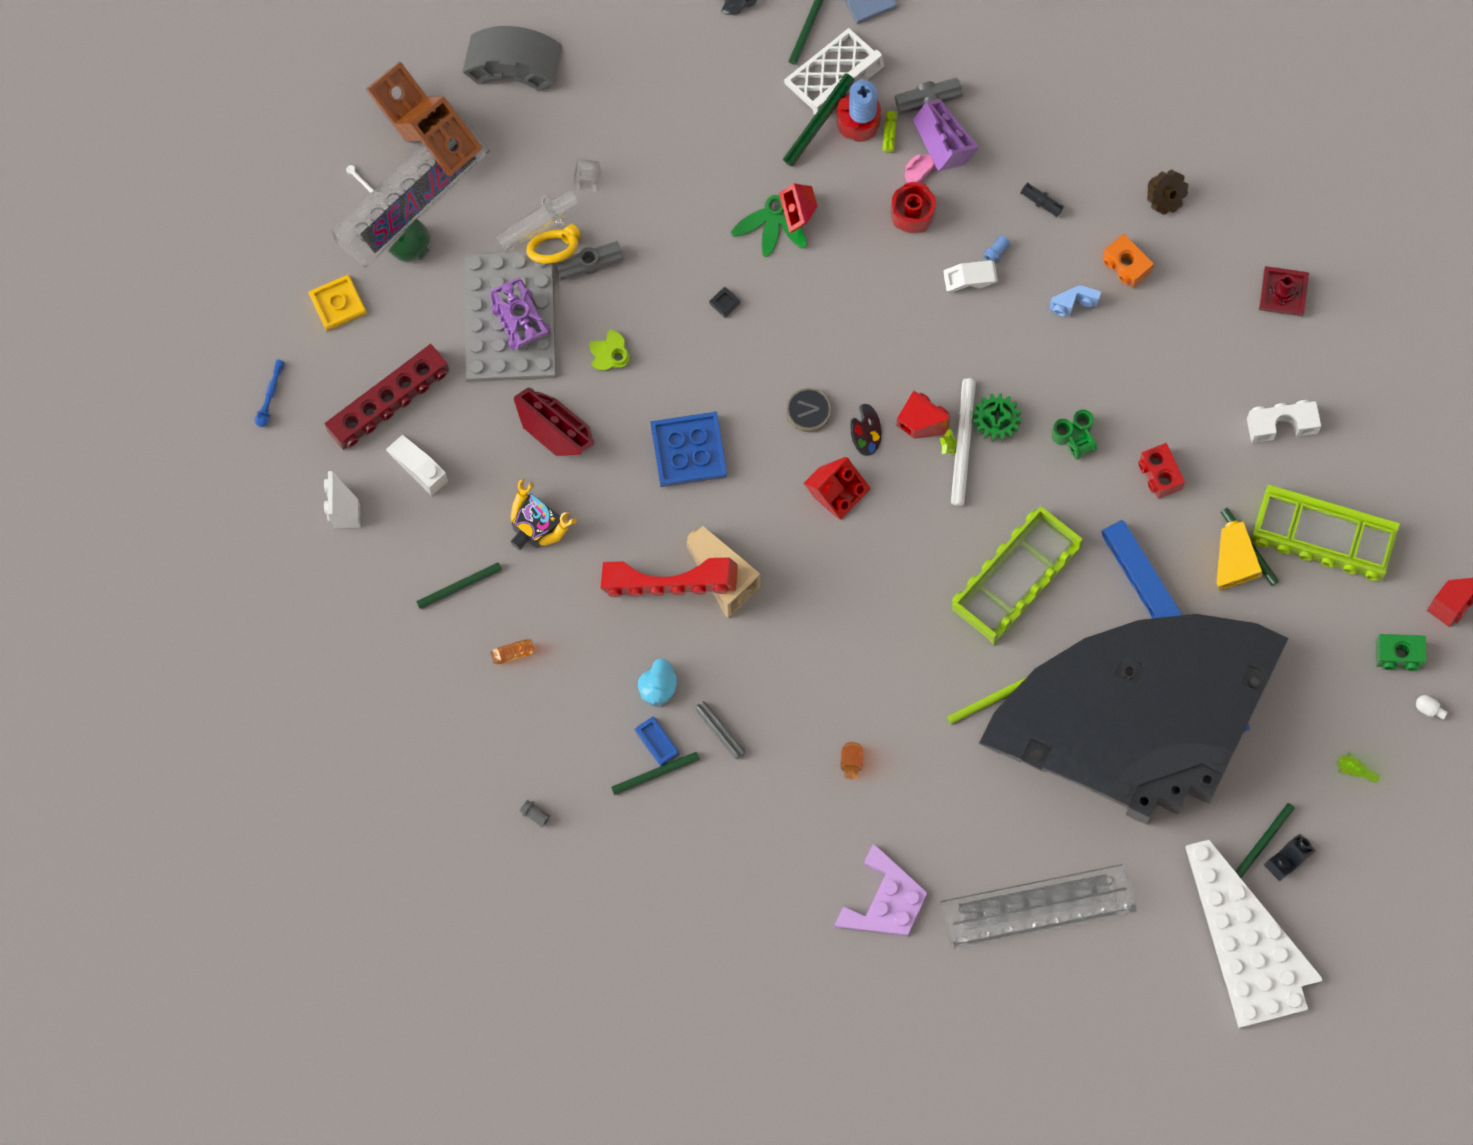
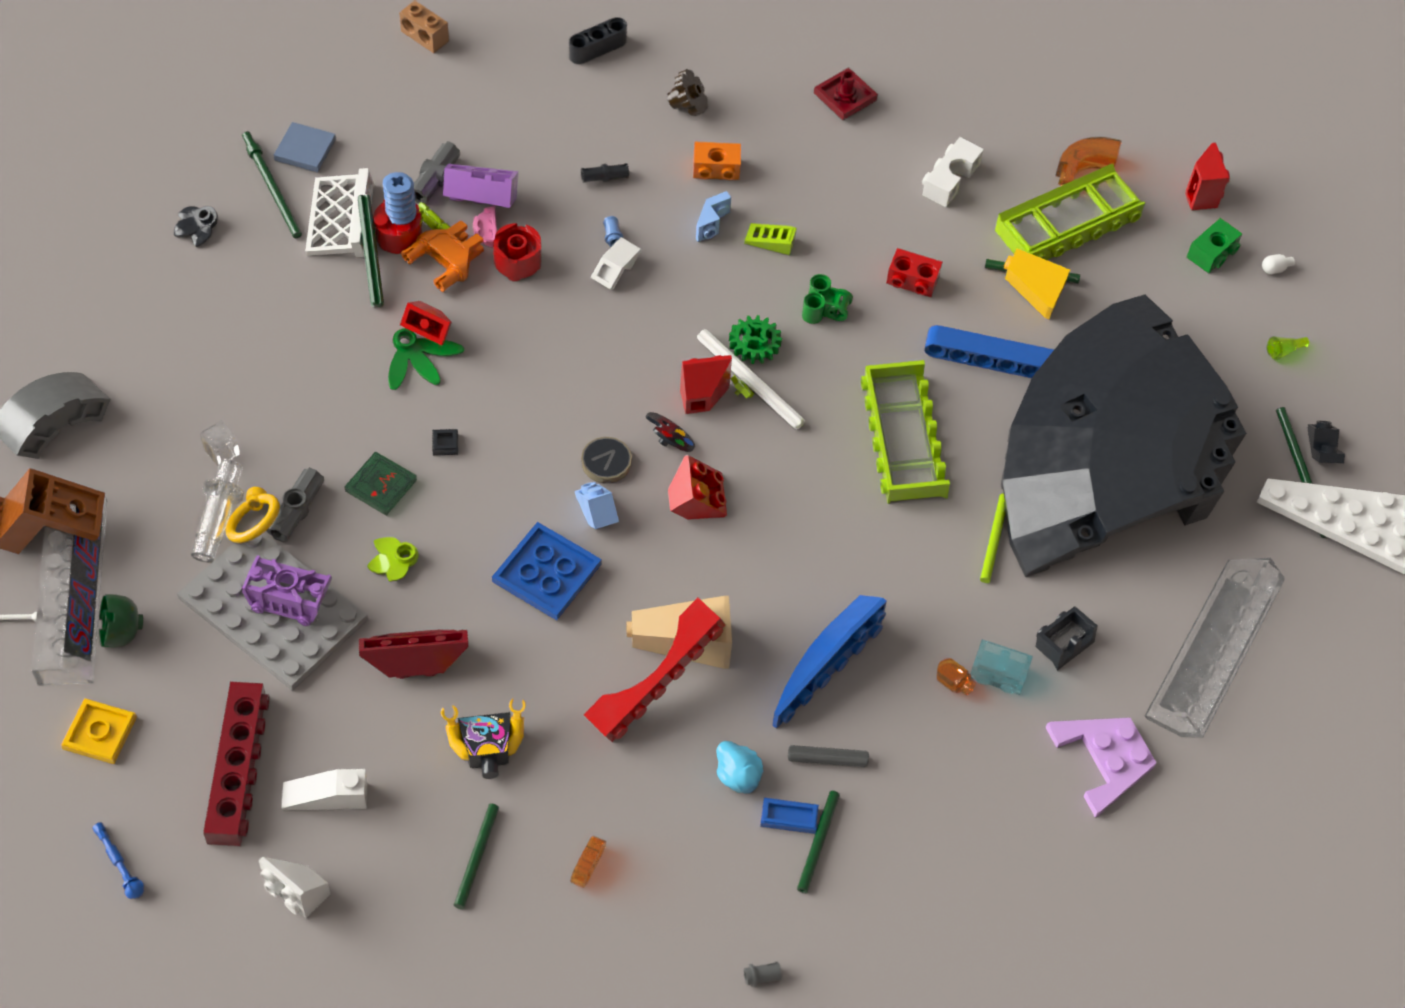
camera: 55 degrees left, 15 degrees down
(656, 293) = (380, 483): none -> clear green tile
(764, 435) = (597, 505): none -> light blue slope
(789, 669) = (831, 652): none -> blue wedge
(872, 170) = (448, 250): none -> orange connector
(885, 782) = (1000, 667): none -> clear light blue brick
(949, 805) = (1066, 637): none -> black window
(1105, 368) = (784, 236): none -> lime slope
(1166, 85) = (597, 40): none -> black beam
(1395, 496) = (1086, 154): none -> clear orange arch

